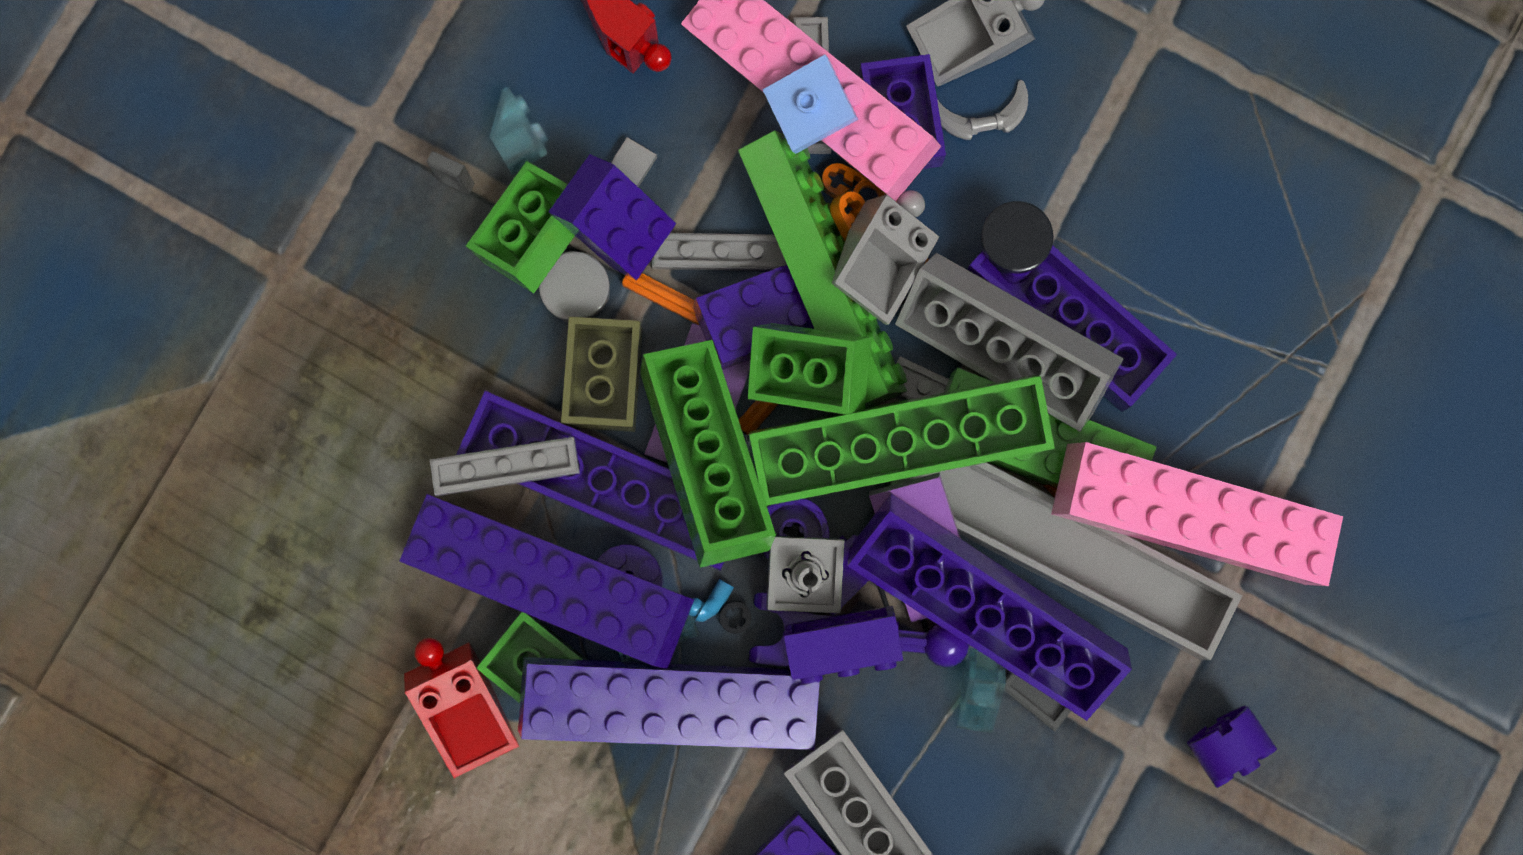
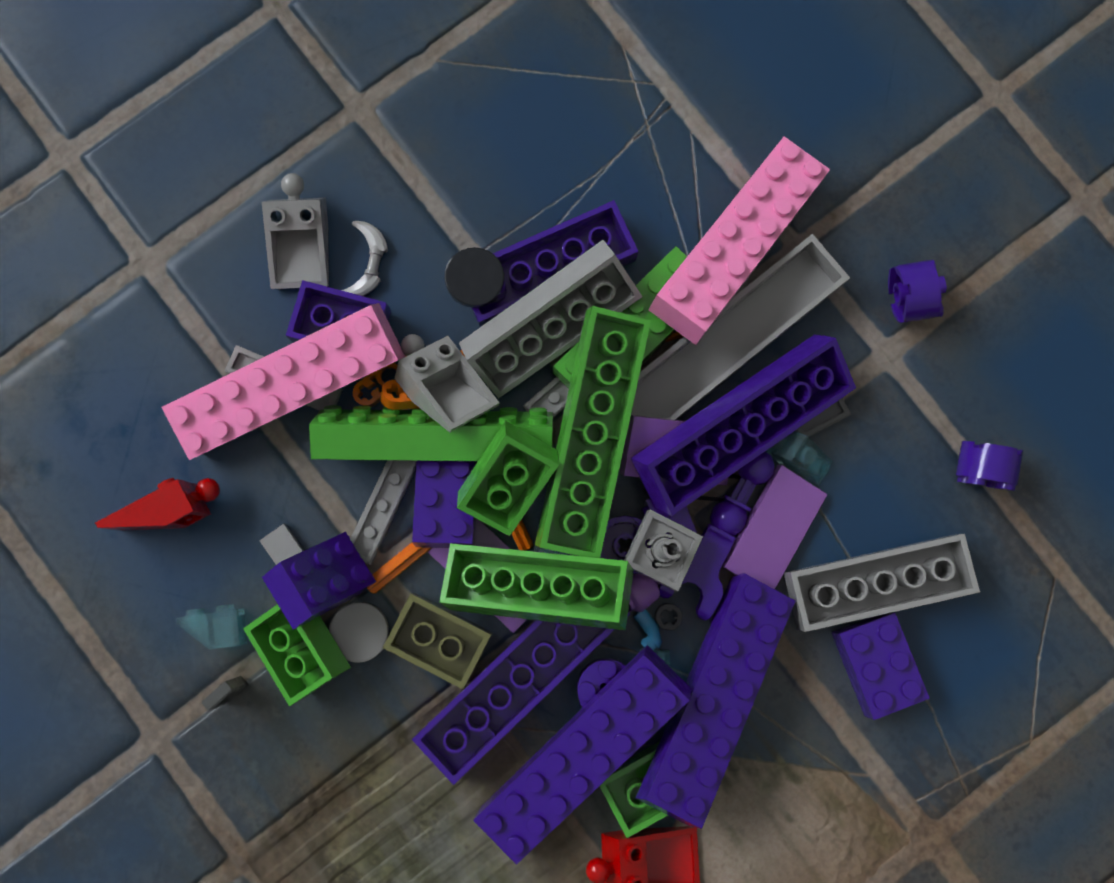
camera: 65 degrees left, 0 degrees up
(504, 466) = (478, 749): light grey tile -> none
(748, 574) = (643, 593): none -> medium lavender head
(810, 104) = (301, 387): light blue plate -> none
(843, 644) = (729, 544): dark purple brick -> none
(898, 701) = (775, 527): none -> medium lavender tile

